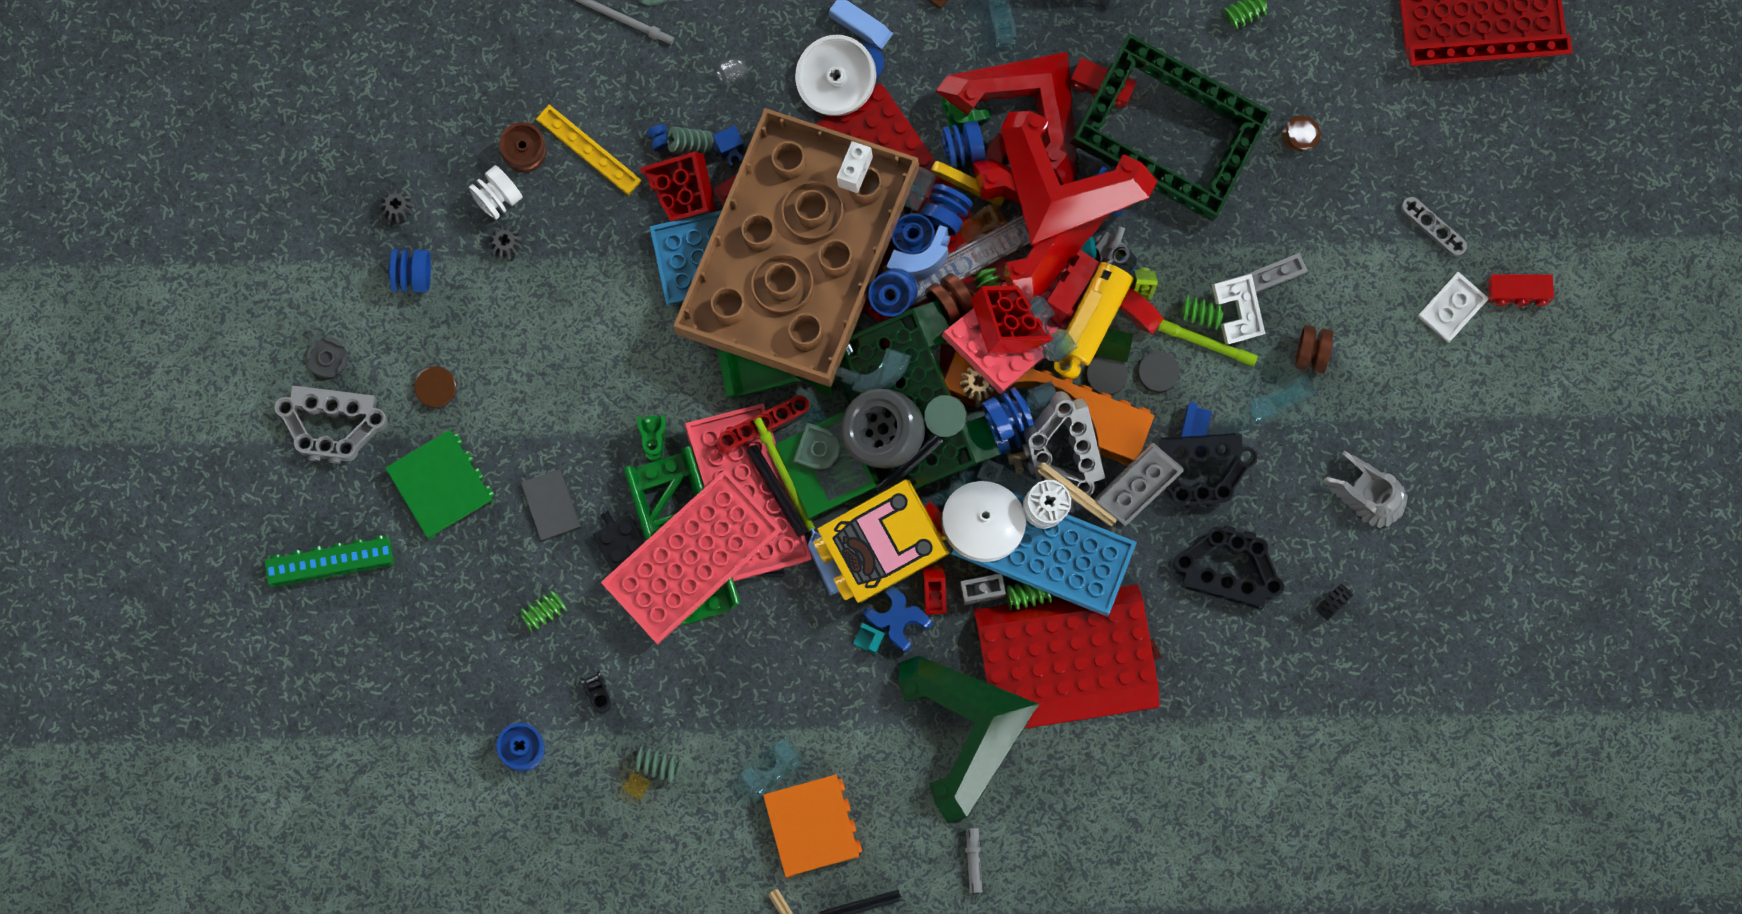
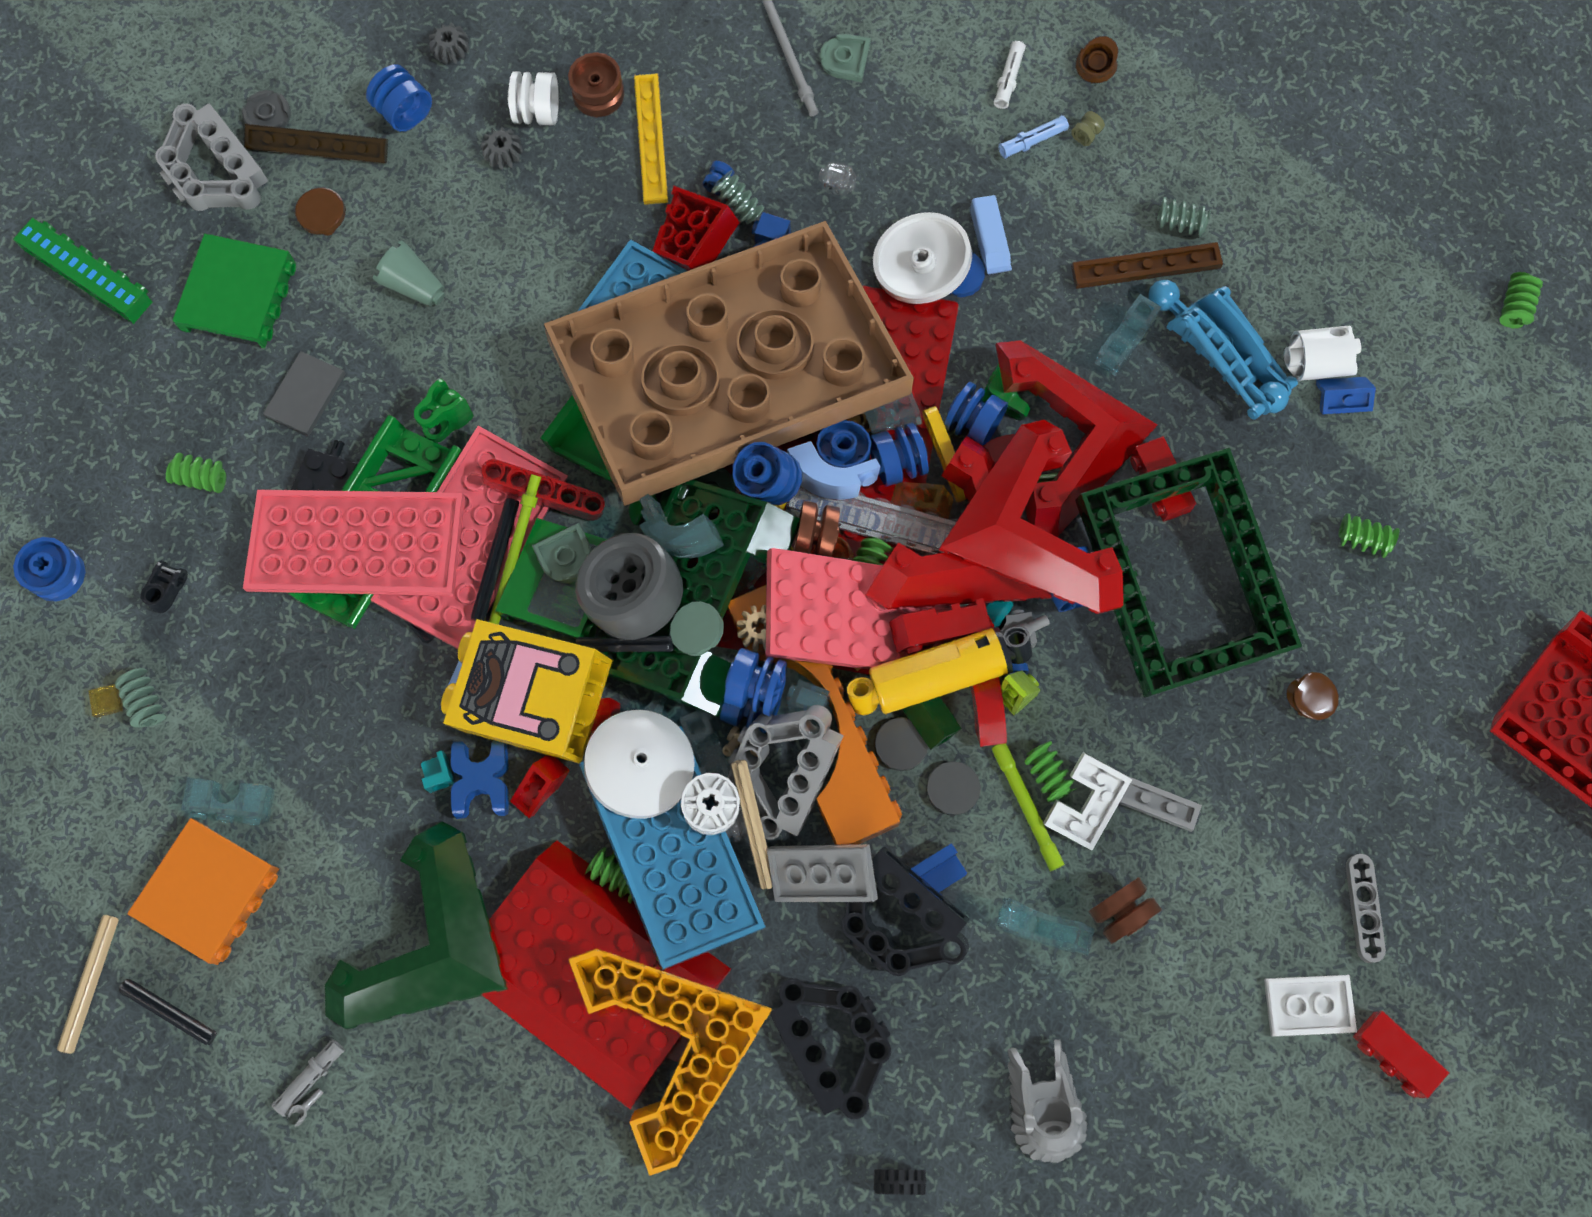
camera: 50 degrees right, 5 degrees down
(383, 348) = (315, 143): none -> dark brown tile
(539, 374) = (408, 275): none -> sand green cone
(854, 167) = (845, 331): white brick -> none
(982, 589) = (579, 827): light grey brick -> none
(989, 880) = (302, 1109): none -> light grey hand
(1007, 321) = (842, 594): red wedge -> none
(1062, 342) = (875, 617): clear light blue arch -> none
(1173, 619) = (718, 1034): none -> light orange wedge

